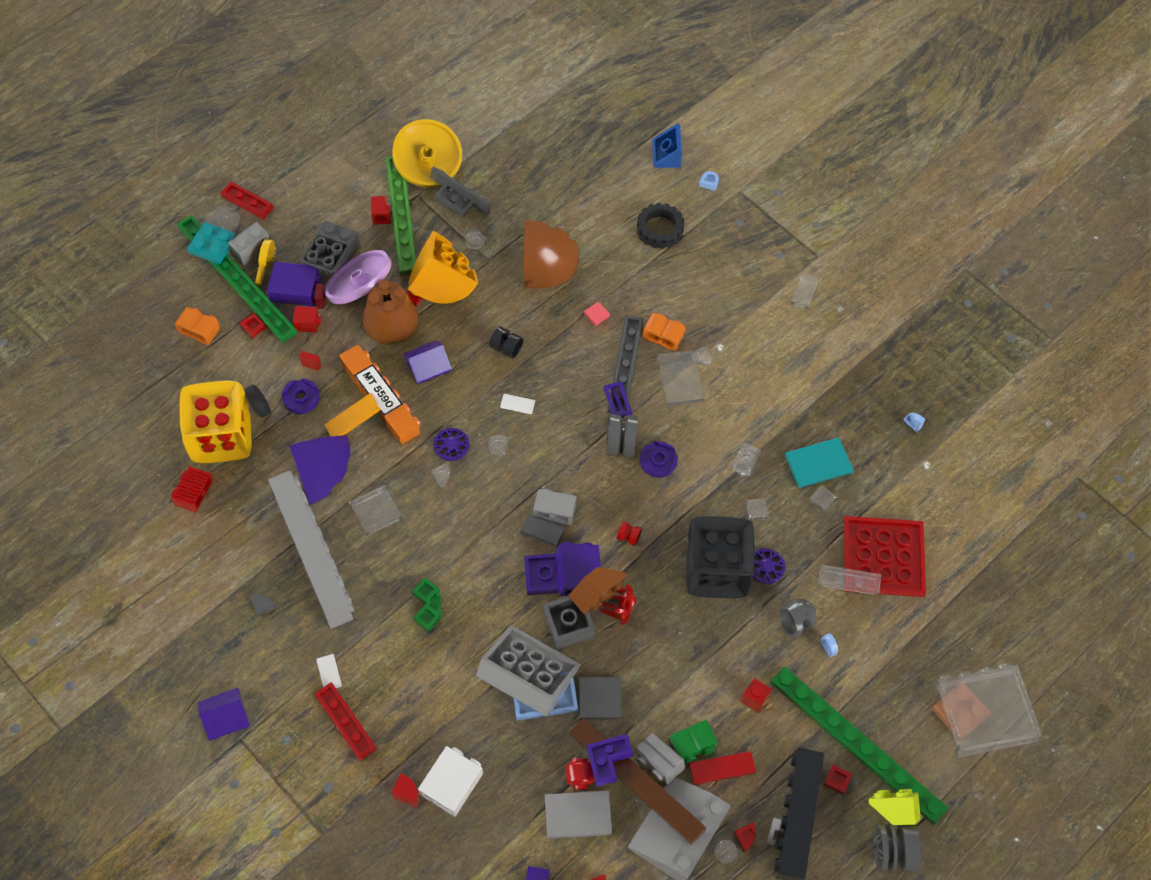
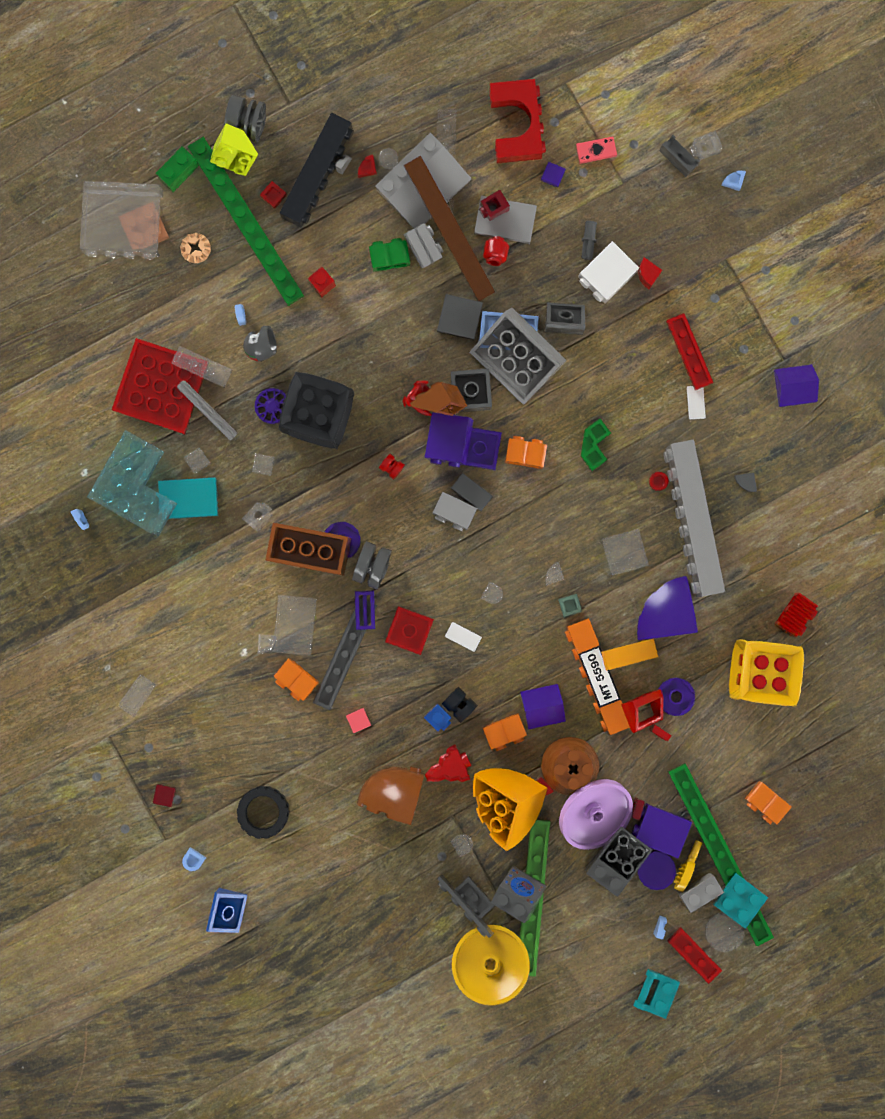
camera: 165 degrees left, 25 degrees up
(253, 325) = (711, 792): red tile -> none
(257, 400) = (720, 694): black tyre -> none
(270, 166) = (662, 996): none -> teal plate
(282, 211) = (659, 931): none -> light blue tile
(291, 251) = (657, 871): none -> dark purple tile
(306, 319) = (655, 783): red brick -> none
(333, 377) = (631, 710): none -> red tile
(354, 584) = (658, 481): none -> red tile
(380, 210) = (555, 904): red brick -> none
(414, 207) = (518, 894): none -> dark grey slope
(420, 451) = (570, 605): none -> sand green tile
(451, 444) = (538, 606): dark purple wheel -> none
(458, 331) = (505, 731): none -> orange brick
(480, 813) = (589, 240): none -> dark grey axle
(487, 720) = (565, 318): none -> dark grey slope
(497, 576) = (526, 453): none -> orange brick
(501, 294) = (451, 767): none -> red rock
(524, 326) = (438, 718): none -> blue brick
(570, 396) = (409, 630): none -> red tile
(594, 810) = (496, 199): none -> dark red brick
(604, 753) = (473, 255): dark purple plate -> none
(687, 437) = (308, 549): none -> dark orange brick
(722, 768) = (370, 228): red tile -> none
(752, 221) = (164, 795): none -> dark red tile
(829, 541) = (207, 410): none -> light grey axle
(881, 448) = (124, 489): none -> clear light blue piece
(891, 705) = (196, 256): none -> light nougat gear
(949, 777) = (177, 169): none -> green piece

